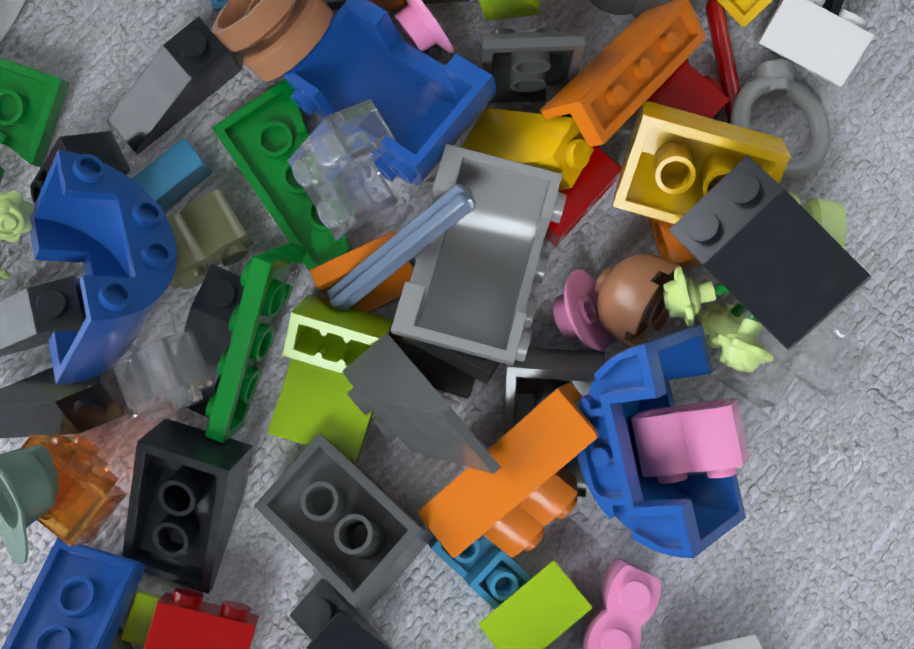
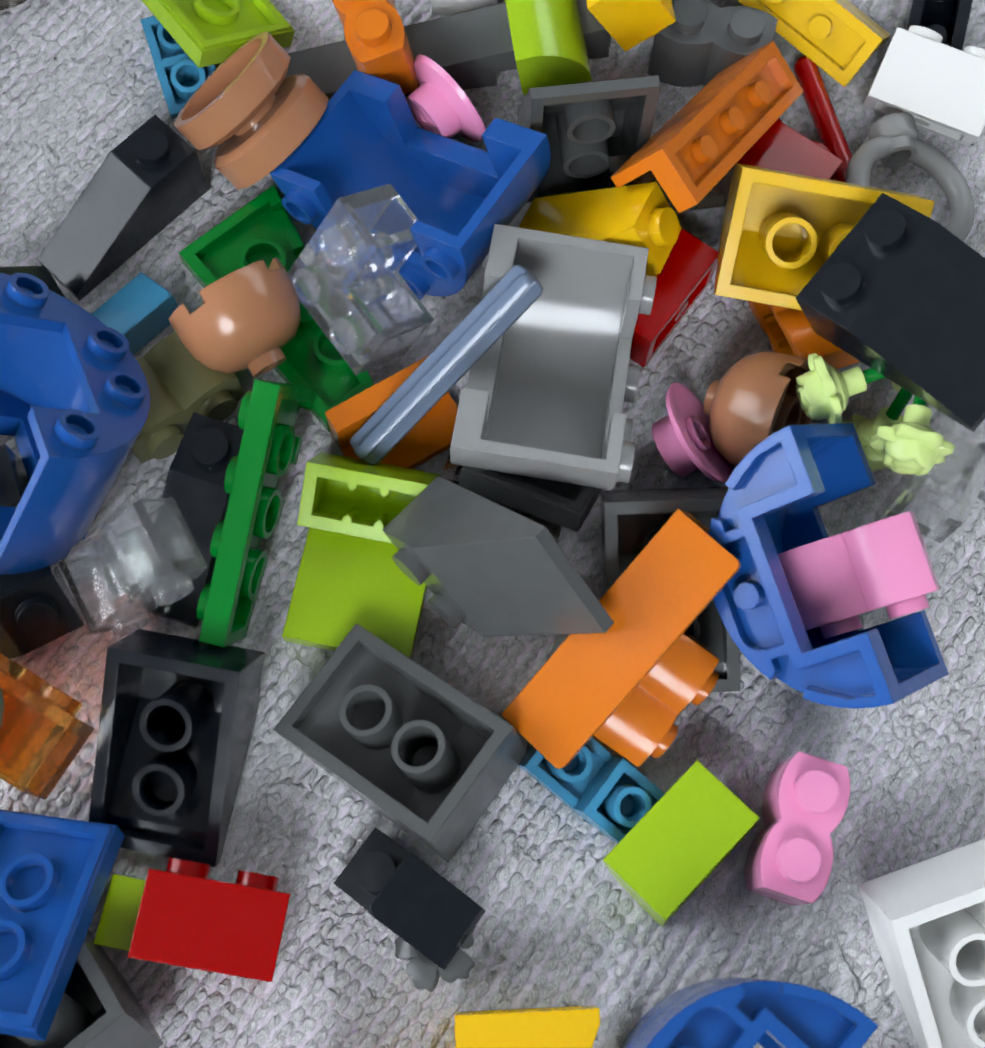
camera: 15 degrees left, 10 degrees down
(252, 197) = (242, 320): none -> nougat cylinder

